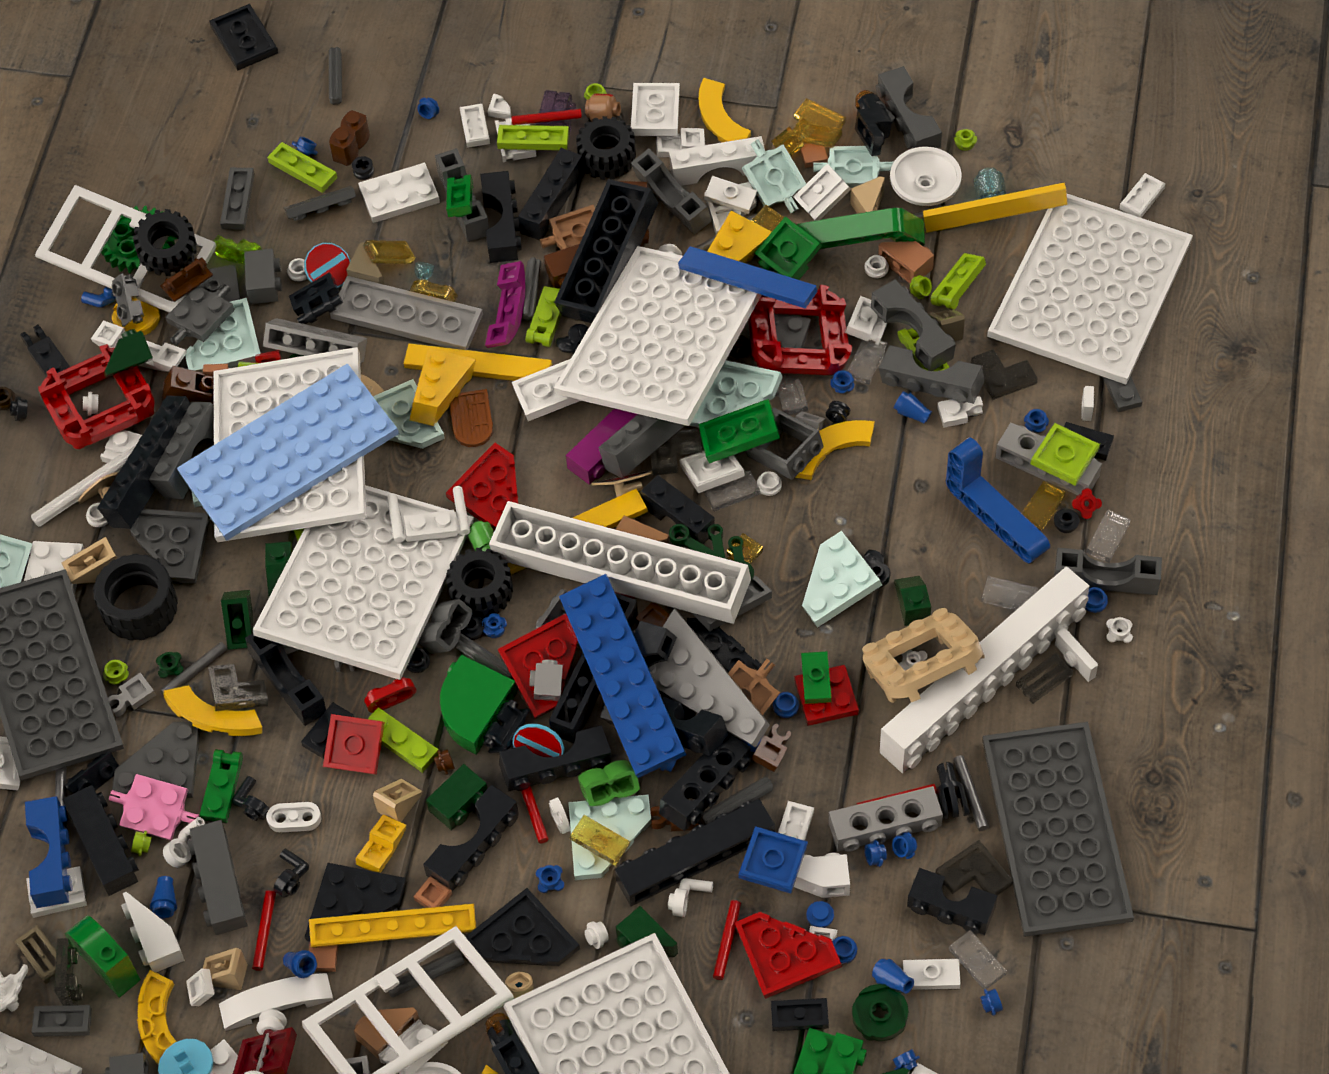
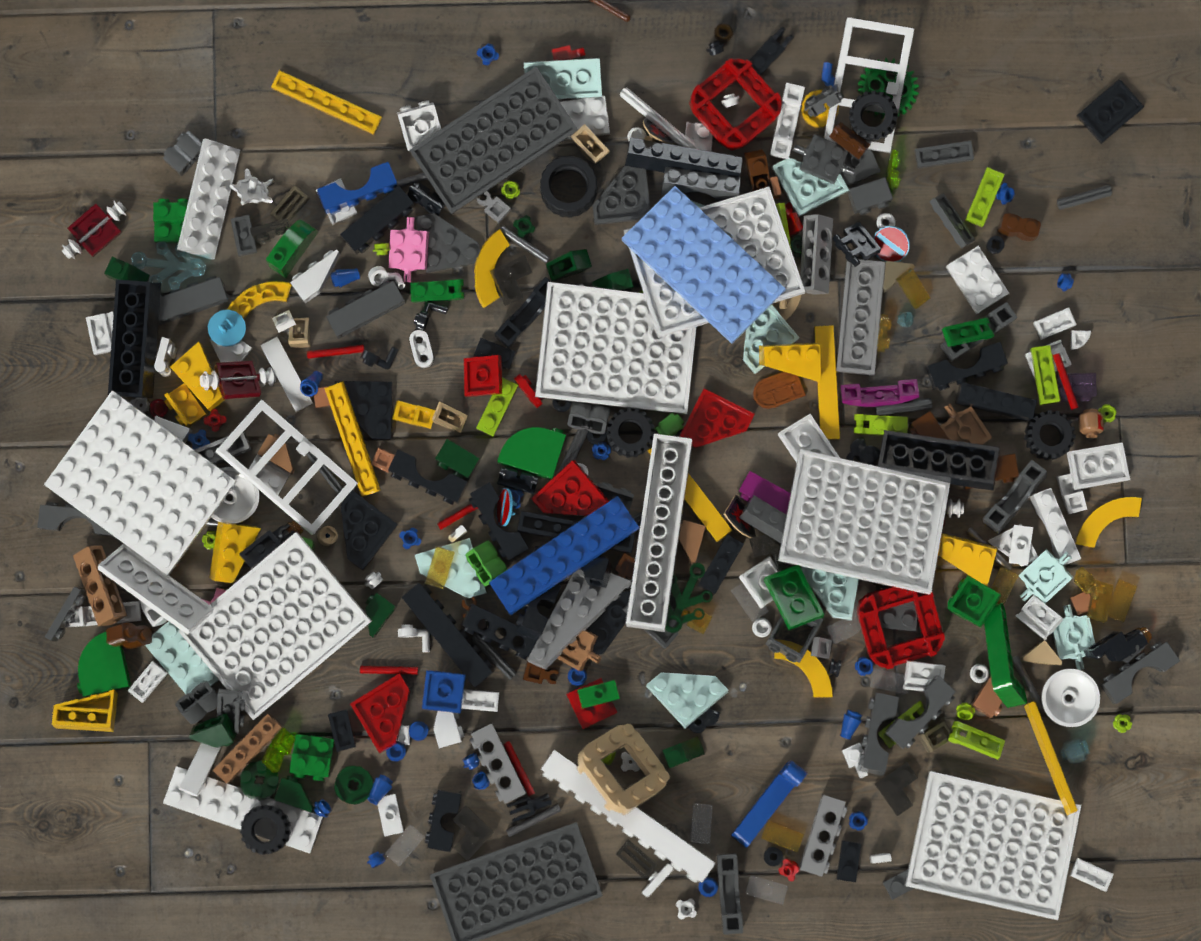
camera: 70 degrees right, 25 degrees up
(129, 352) = (769, 117): dark green slope -> none
(431, 524) = (669, 384): white plate -> none
(444, 761) = (484, 443): reddish brown plate -> none
(547, 680) = (553, 502): light grey brick -> none
(748, 277) = (922, 577): blue tile -> none
(1065, 454) = (820, 848): lime plate -> none

